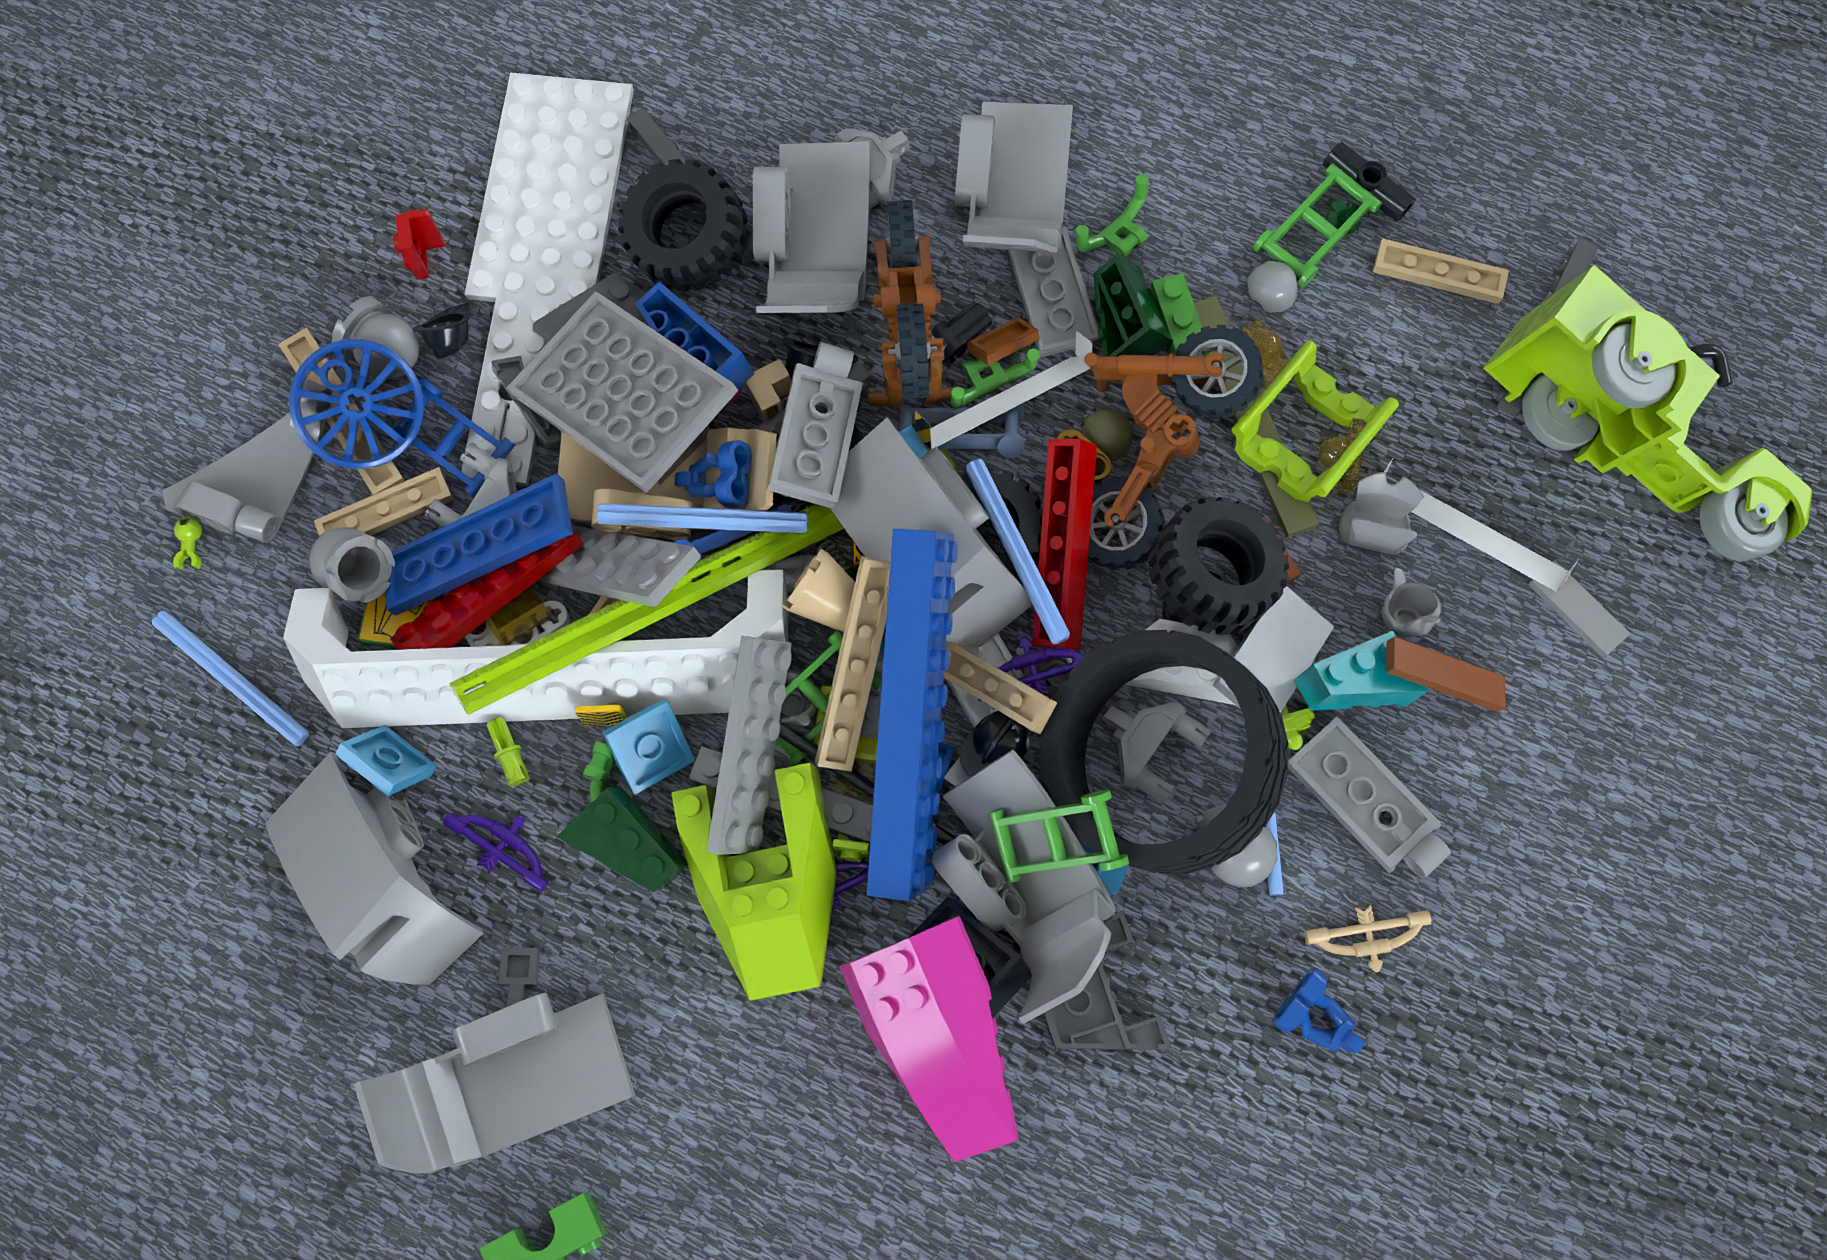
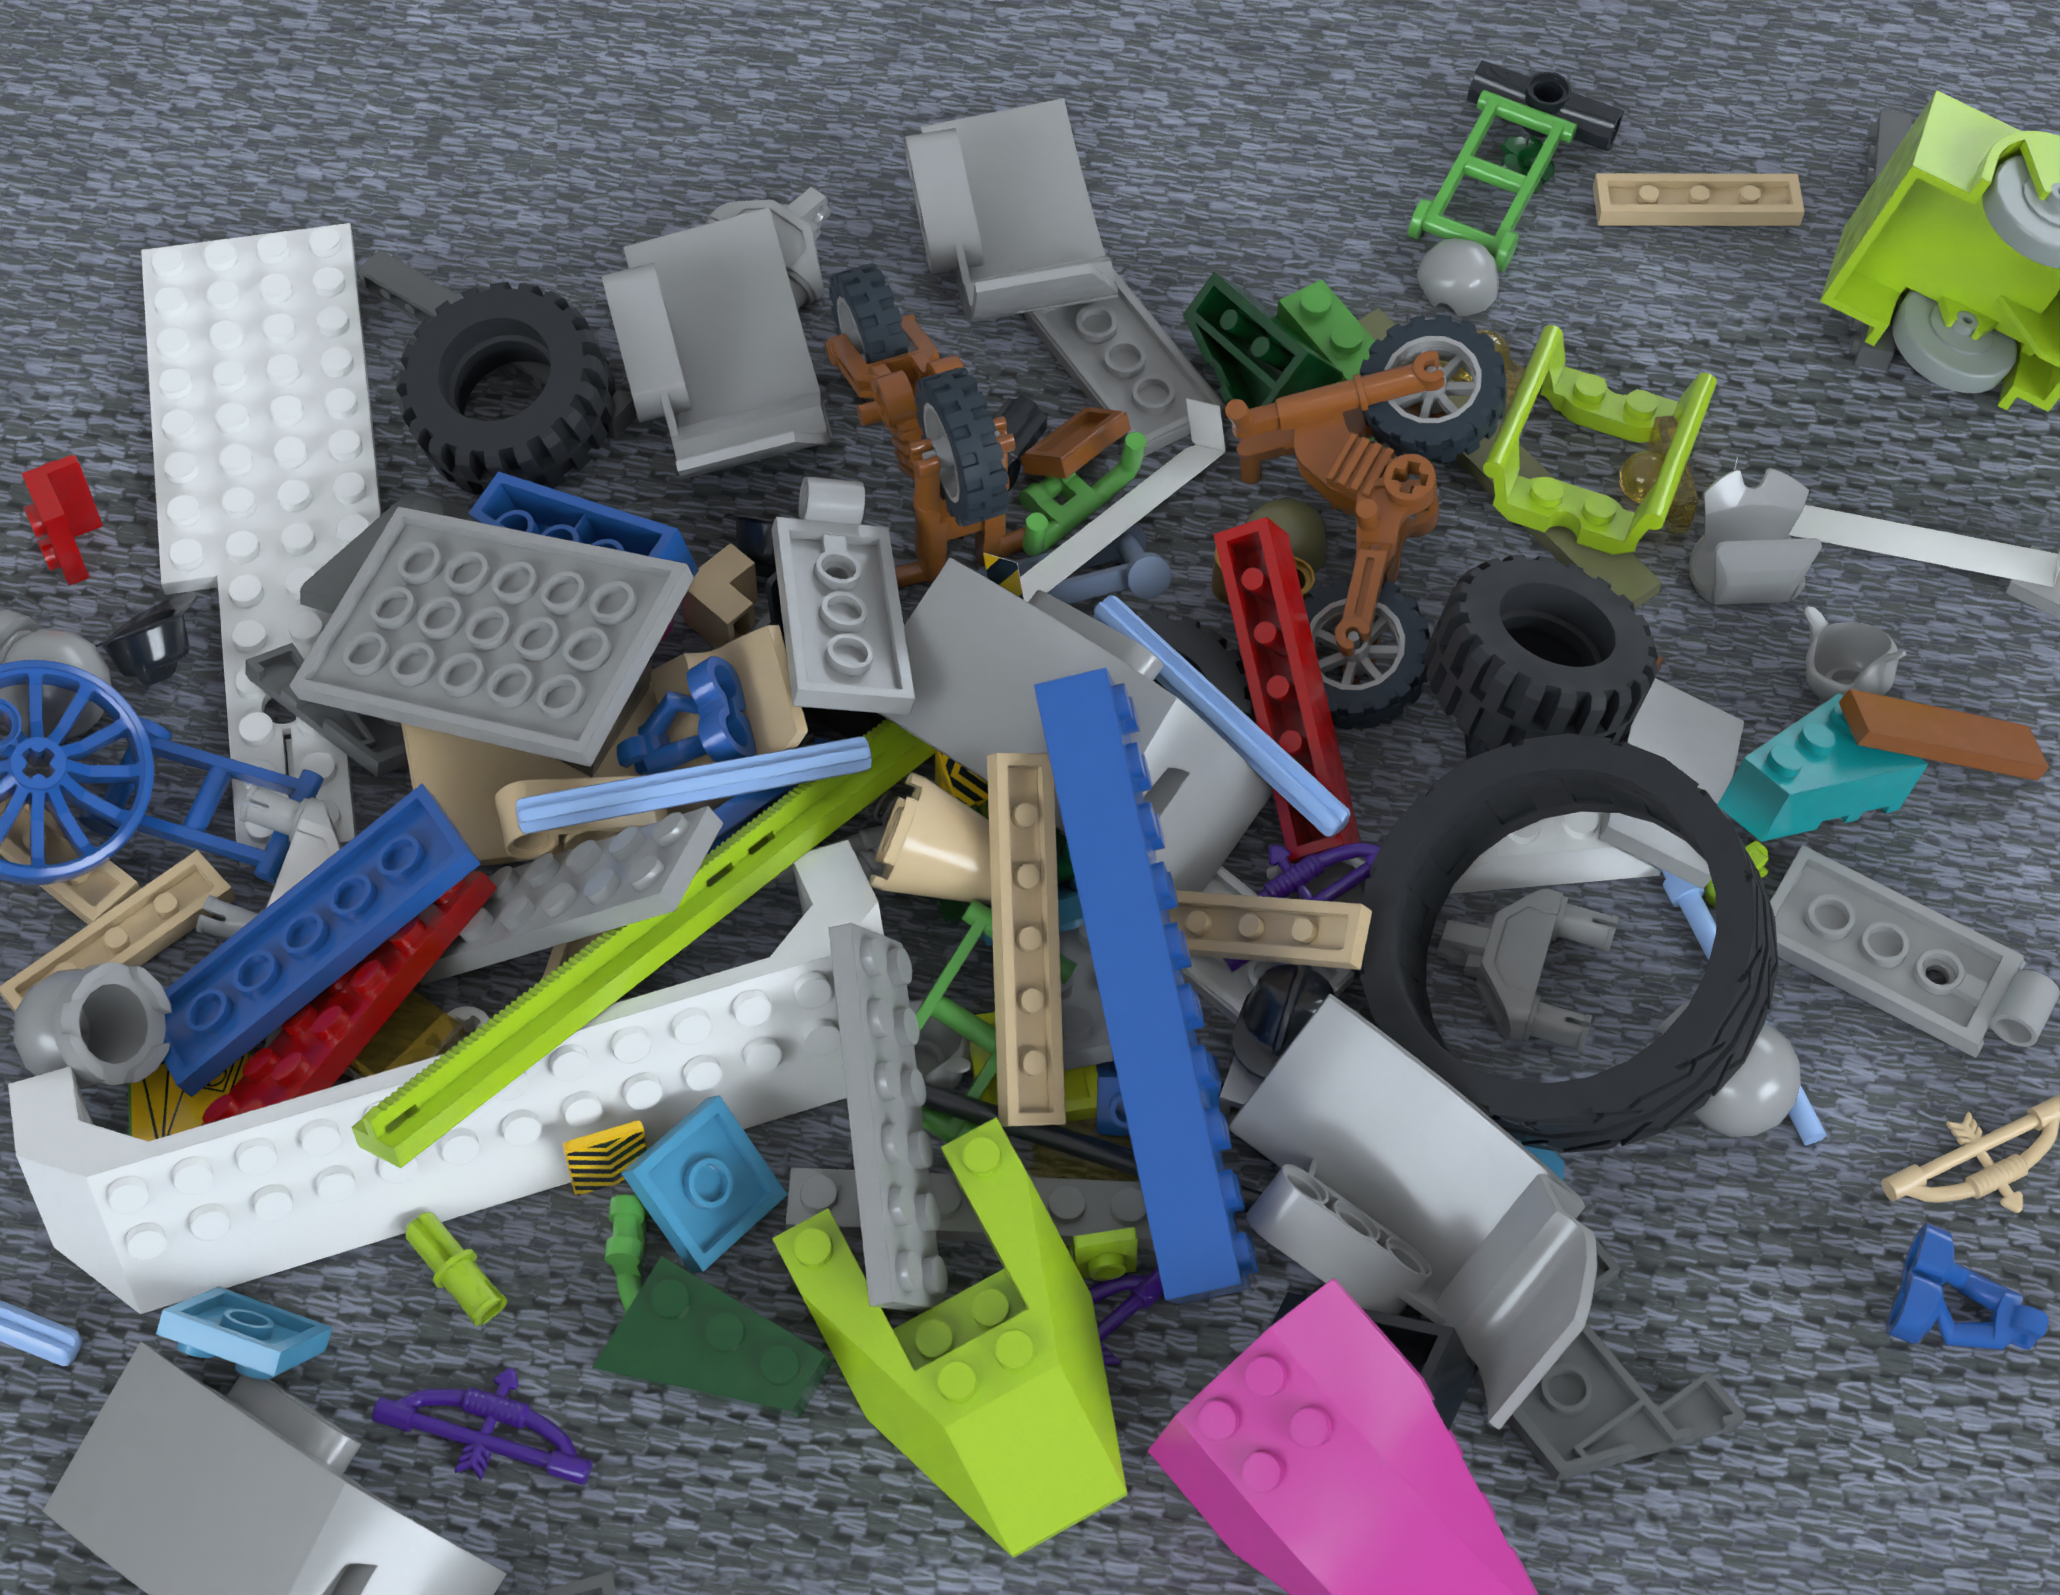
camera: 20 degrees left, 15 degrees down
(1095, 802) = (1549, 1111): bright green piece -> none
(1123, 223) = (1185, 265): bright green piece -> none

